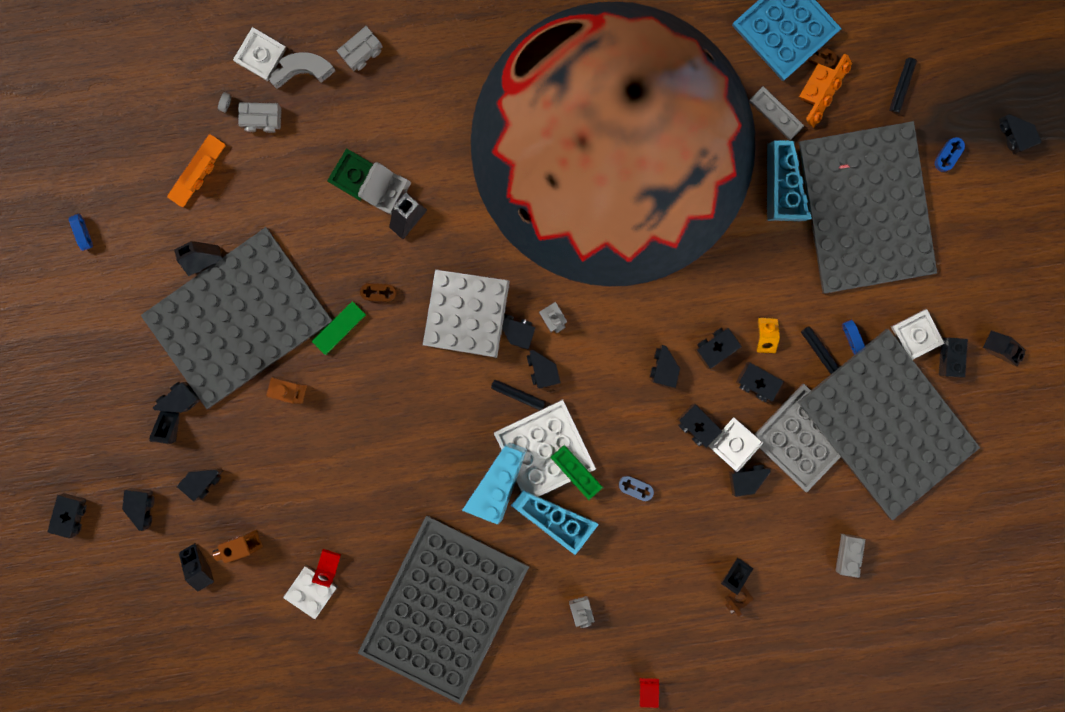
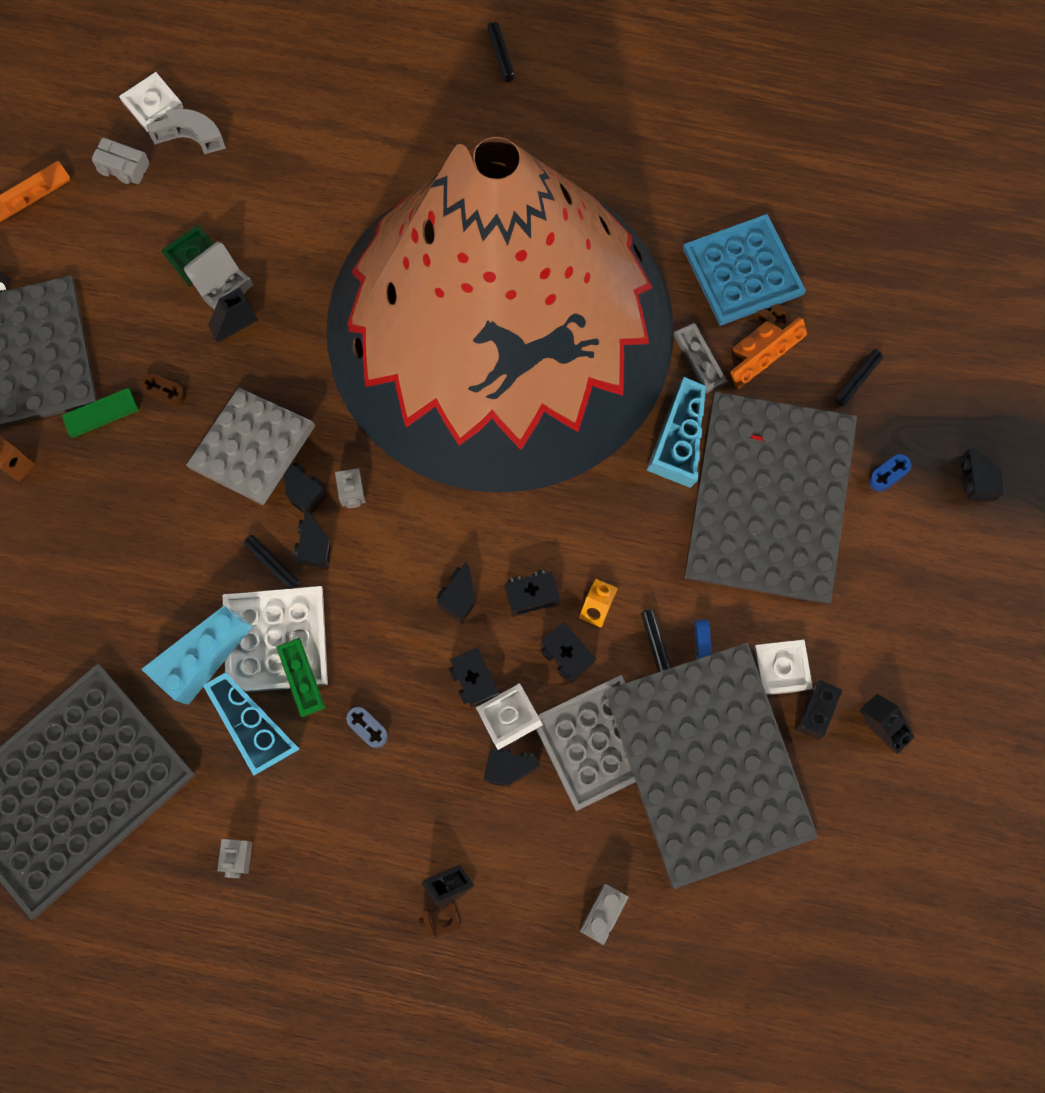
camera: 20 degrees right, 15 degrees down
(224, 102) = (89, 134): light grey tile -> none
(360, 49) = (260, 132): light grey brick -> none
(649, 693) = (277, 998): red bracket -> none

